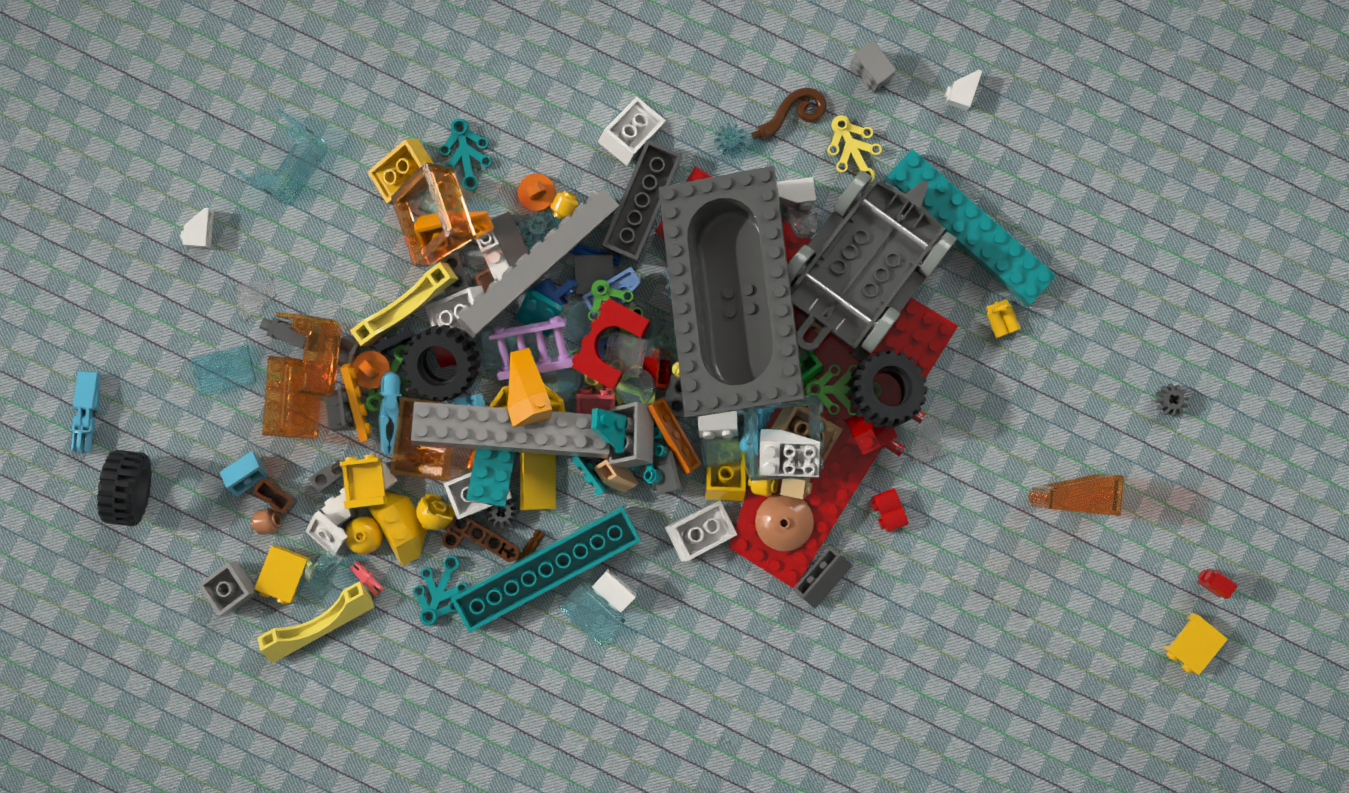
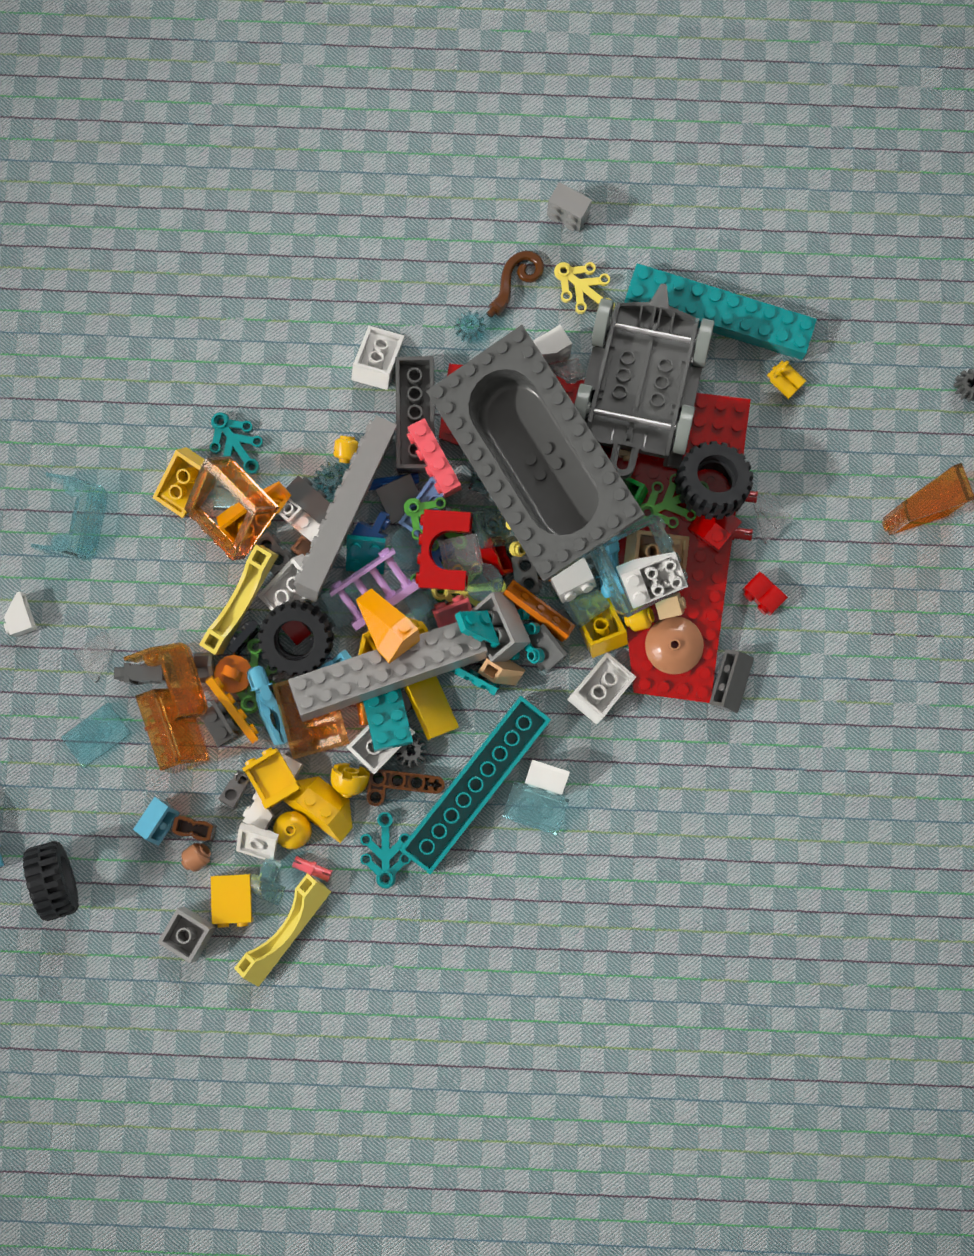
camera: 20 degrees left, 5 degrees down
(532, 543) = (452, 769): reddish brown axle -> none
(536, 192) = (315, 449): orange tile -> none
(639, 252) = (434, 458): none -> coral brick
(962, 91) = (658, 195): white slope -> none

